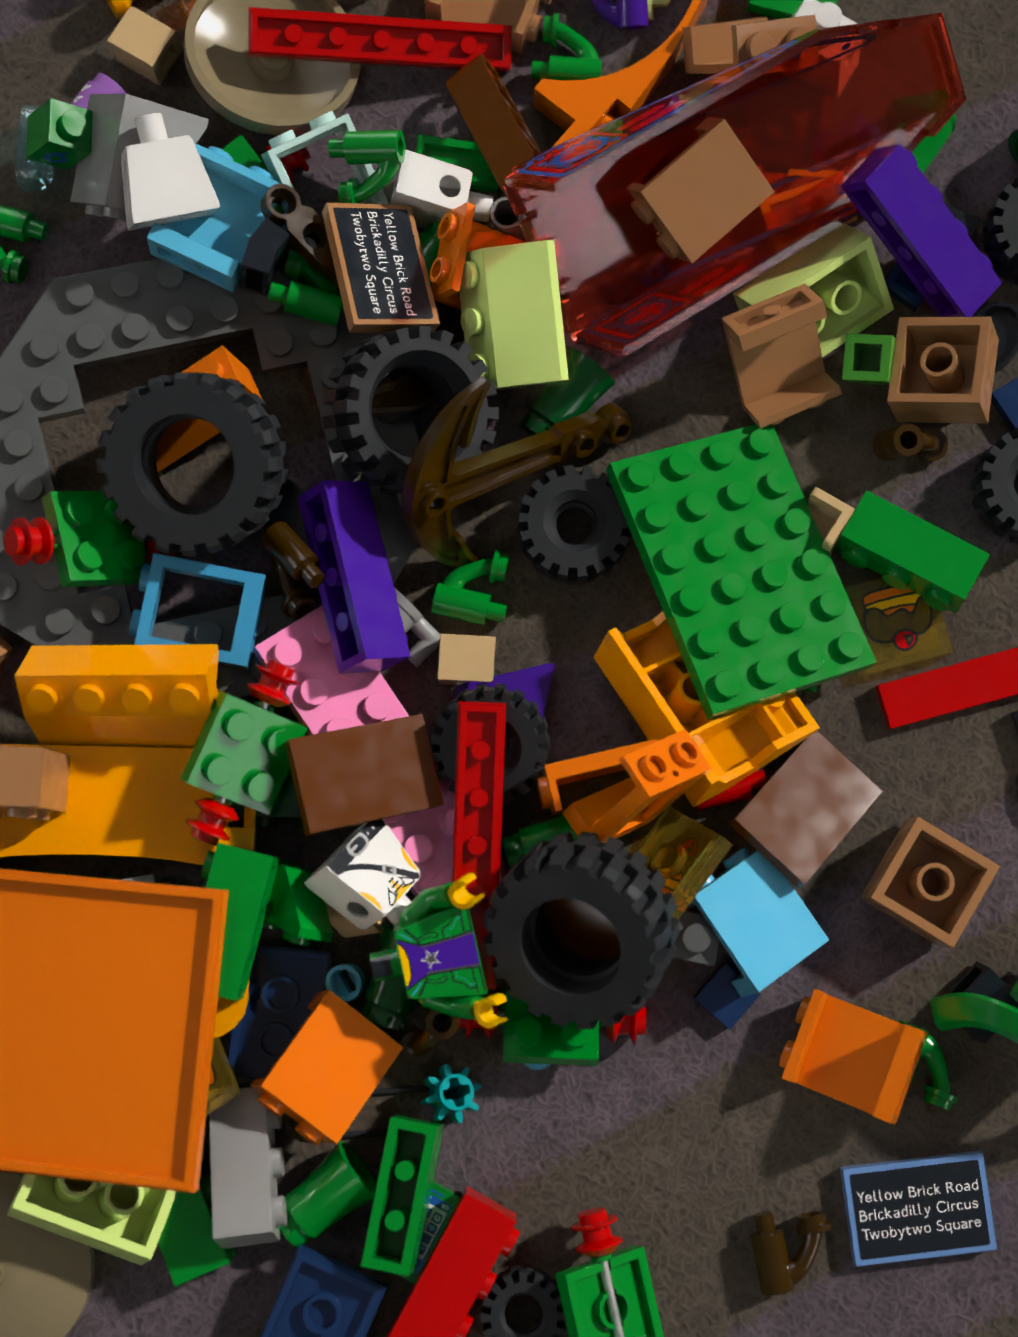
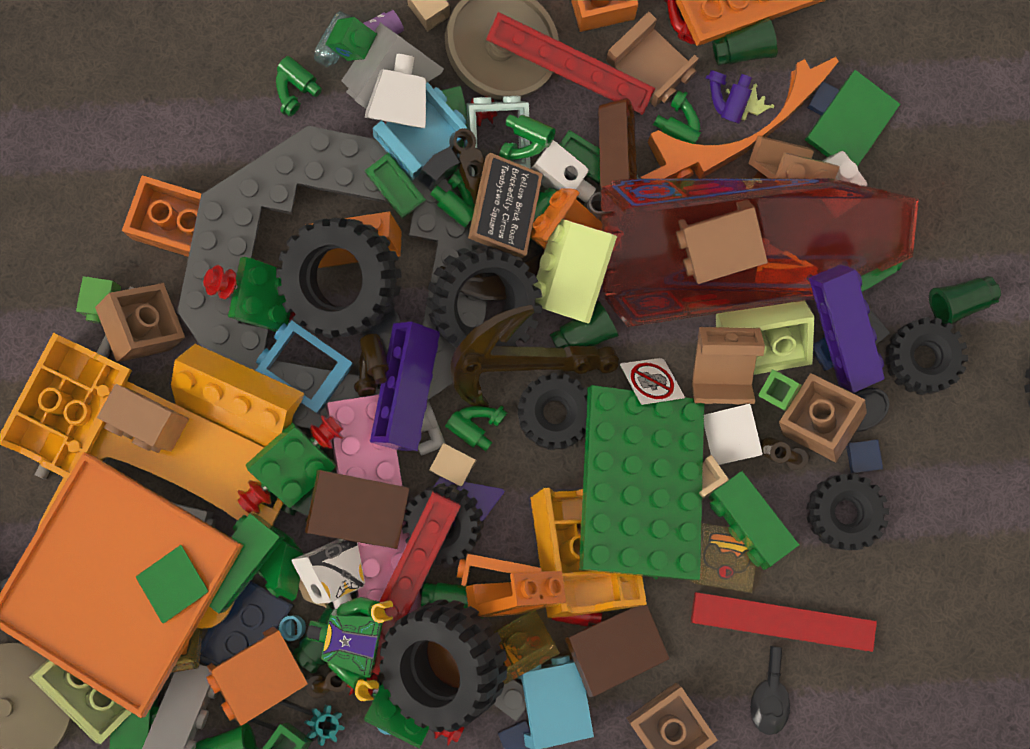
camera: 20 degrees right, 0 degrees up
(152, 988) = (172, 584): none -> green sticker
(213, 309) = (395, 185): none -> green tile
(688, 424) = (652, 381): none -> sticker
(830, 449) = (732, 434): none -> white sticker

